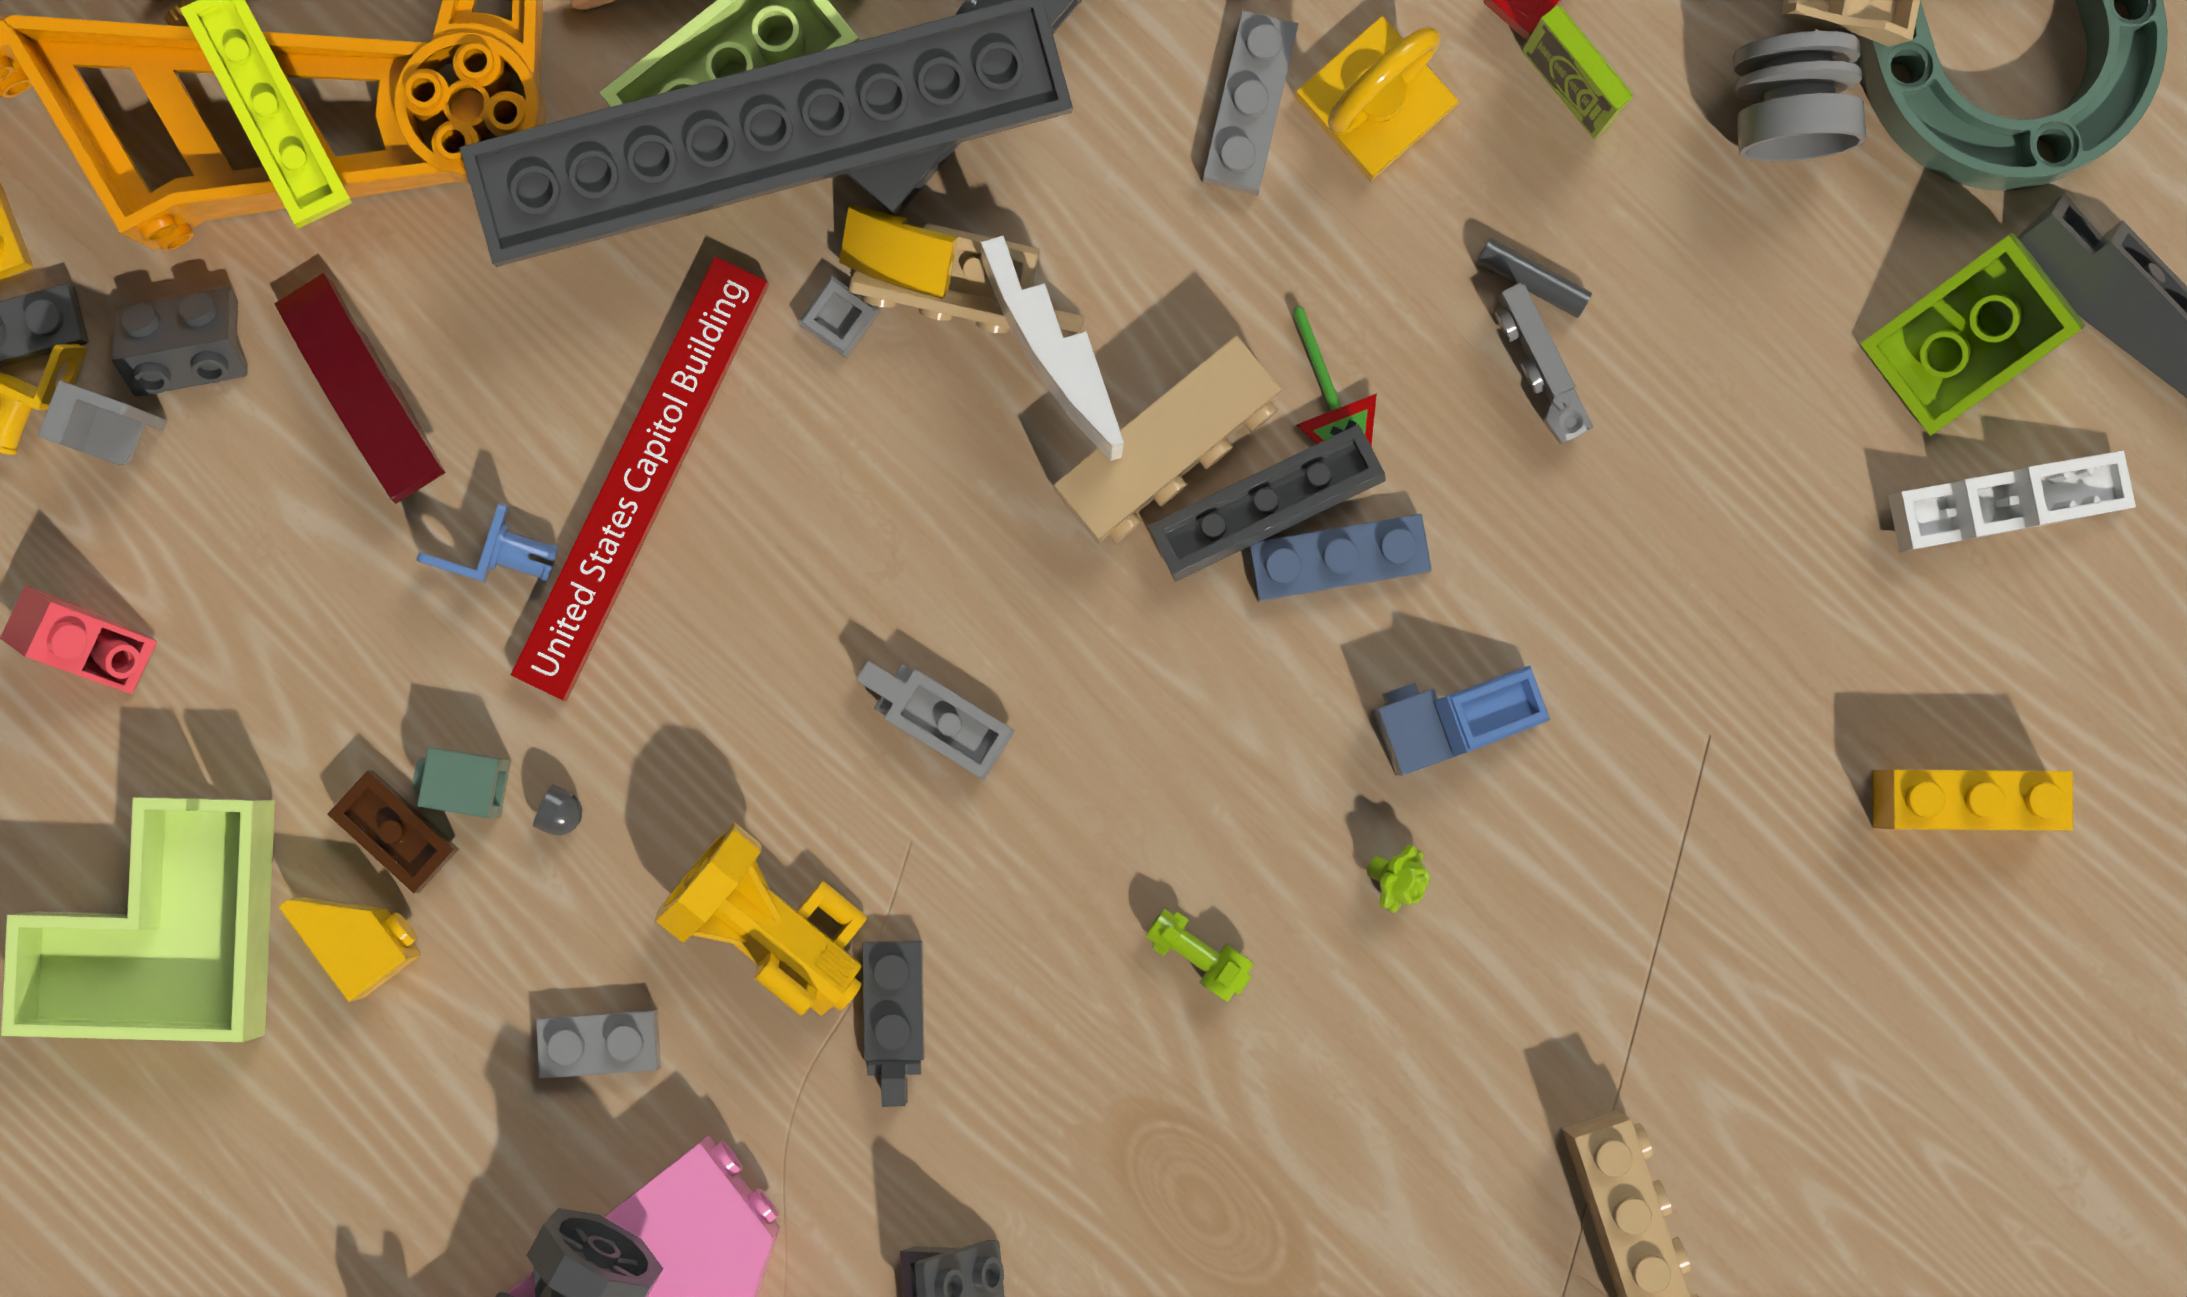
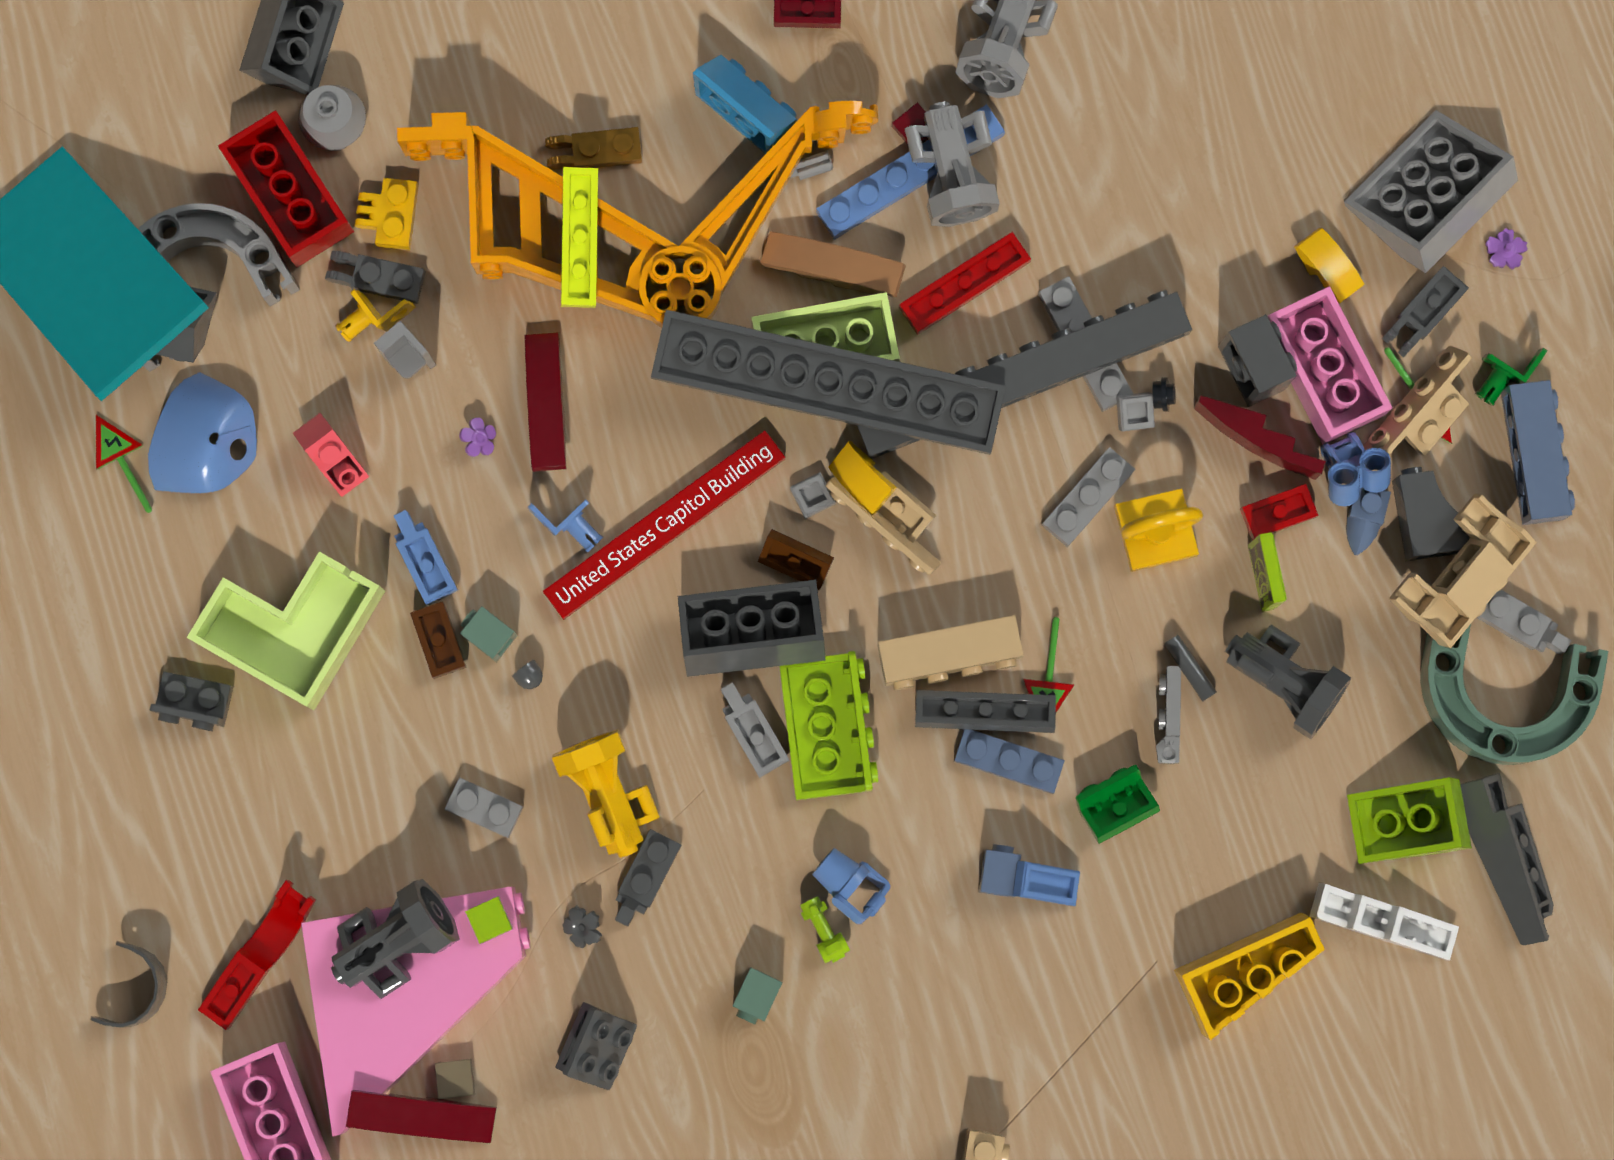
camera: 30 degrees right, 5 degrees down
(73, 1117) = (192, 699): none -> dark grey bracket
(178, 342) = (464, 328): dark grey bracket -> none
(288, 495) = (479, 437): none -> medium lavender plant
(304, 723) = (423, 560): none -> medium blue hinge
(353, 942) = (388, 688): yellow slope -> none
(693, 1212) = (489, 920): none -> lime tile
(839, 1142) = (582, 927): none -> dark grey plant
(851, 565) = (751, 628): none -> dark grey brick
(864, 426) = (795, 558): none -> reddish brown plate
(1044, 649) = (828, 727): none -> lime bracket
(1063, 364) = (915, 581): white slope -> none
(1152, 1105) = (756, 996): none -> sand green brick
(1188, 863) = (843, 876): none -> medium blue piece
(1400, 878) = (951, 946): lime plant -> none
(1532, 537) = (1116, 803): none -> green bracket
(1727, 222) = (1307, 692): none -> dark grey piece
(1799, 96) = (1380, 641): light grey wheel -> none
(1846, 690) = (1240, 974): none -> yellow wedge
(1973, 800) = (1278, 1068): yellow brick -> none

